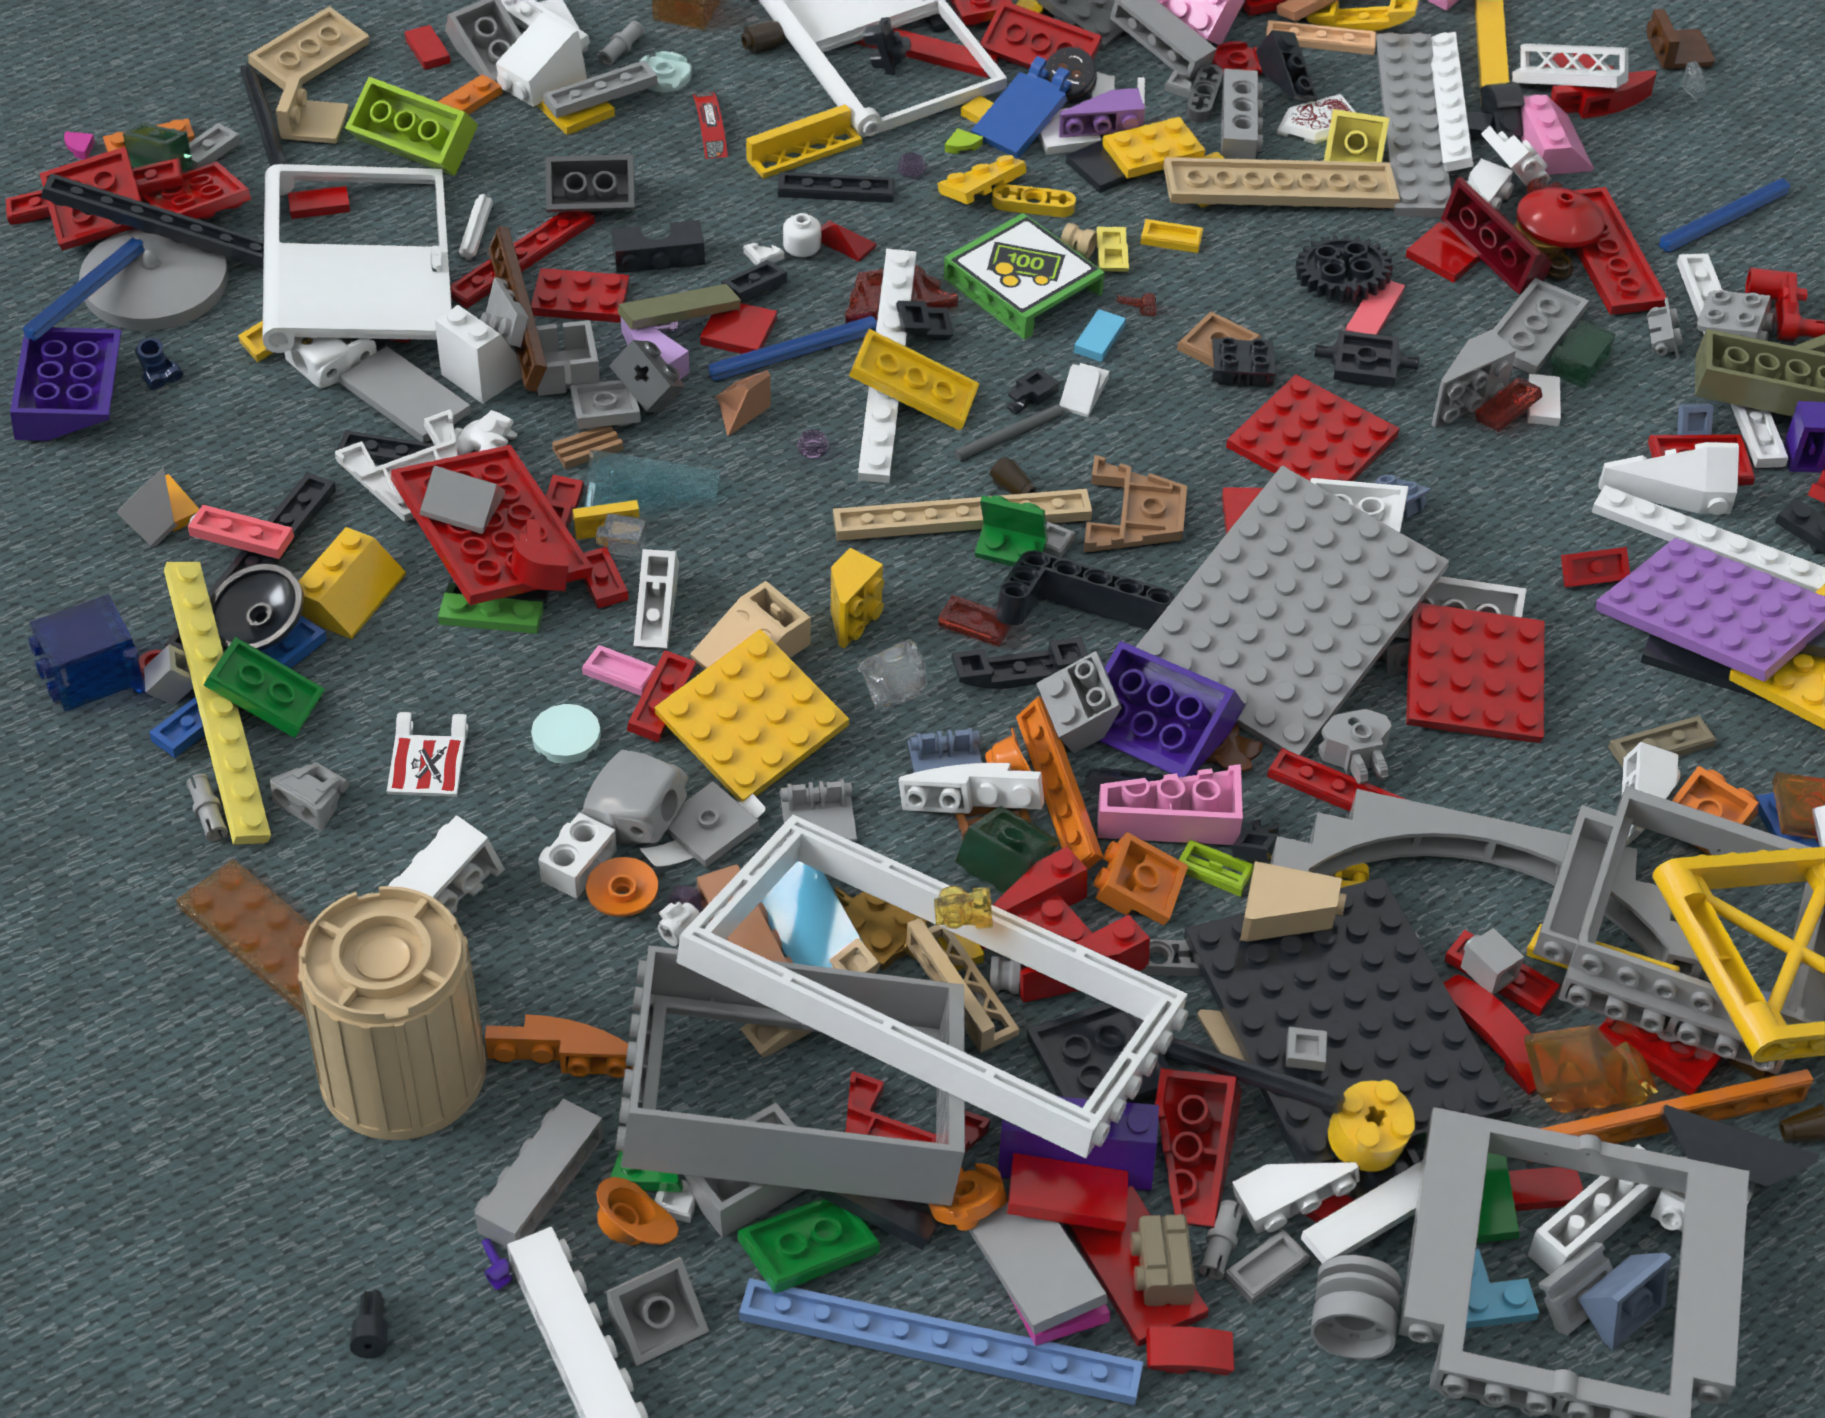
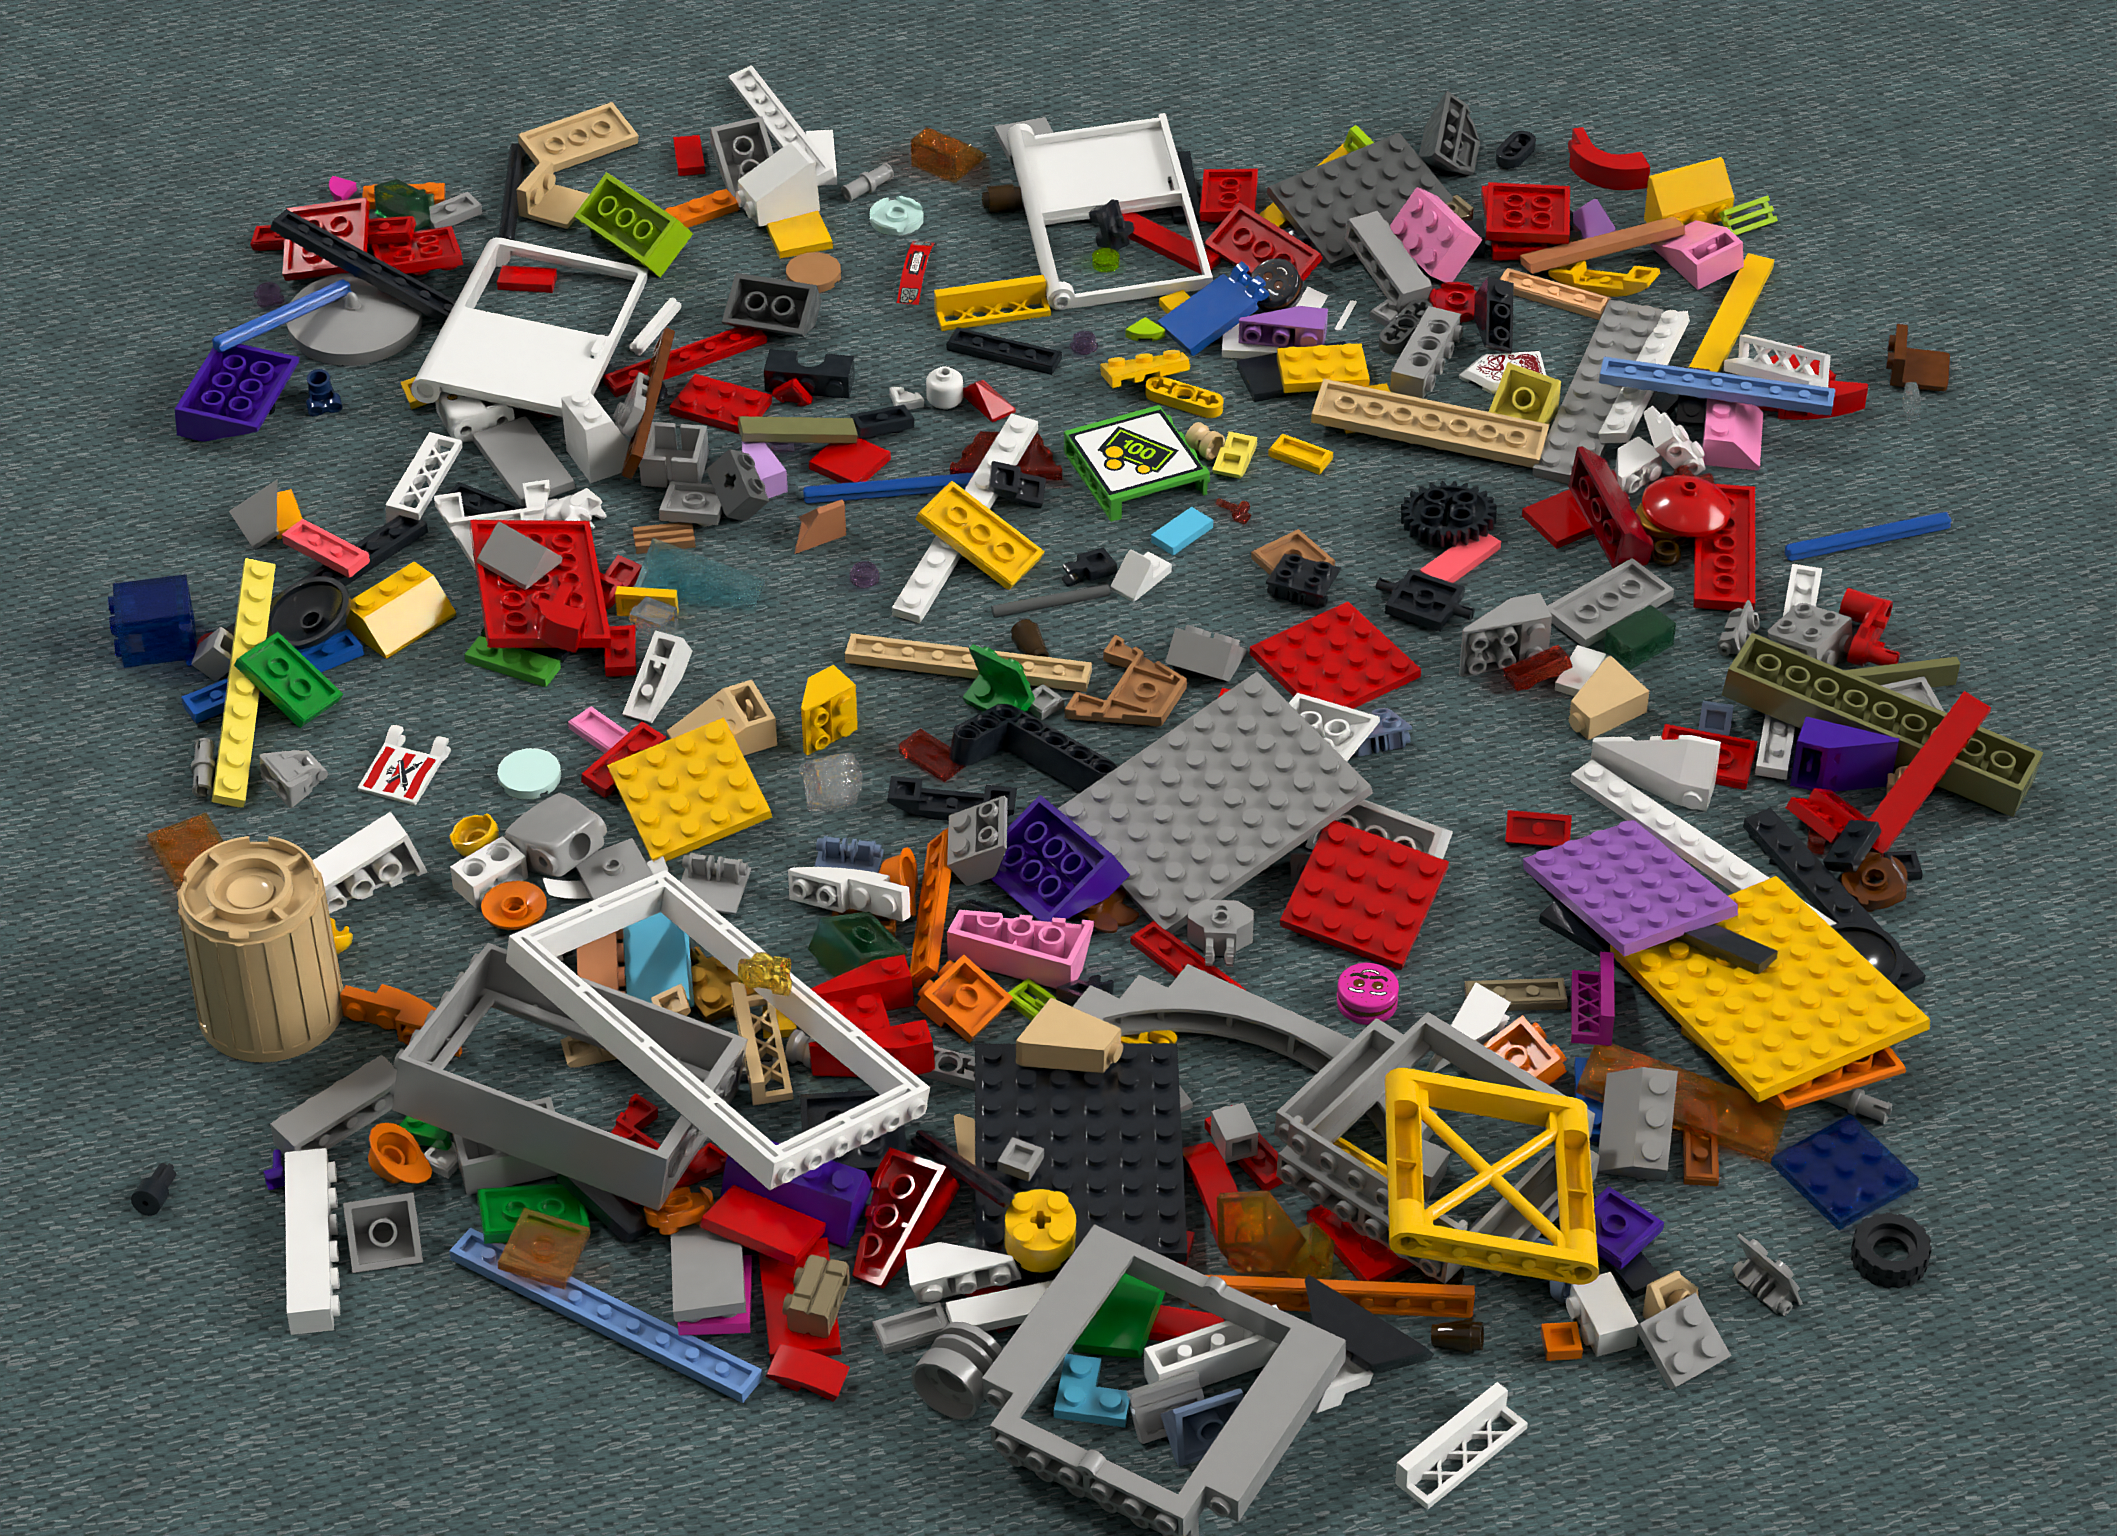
camera: 20 degrees right, 5 degrees down
(50, 269) = (268, 294): none -> clear purple plate
(303, 430) = (420, 471): none -> white fence
(543, 817) = (473, 833): none -> yellow hair
(600, 89) = (824, 221): light grey plate -> none
(609, 139) = (814, 269): none -> medium nougat tile
(649, 268) = (792, 392): none -> red tile
(848, 1284) = (544, 1248): none -> clear orange plate
(889, 79) = (1105, 260): none -> clear neon green tile
(1192, 456) = (1209, 656): none -> light grey slope
(1221, 1240) = (880, 1297): light grey pin -> none
(1528, 776) = (1367, 993): none -> dark pink head
(1536, 96) = (1717, 386): none -> medium blue plate
(1589, 422) = (1607, 700): none -> tan slope
(1762, 733) = (1600, 1007): none -> magenta fence

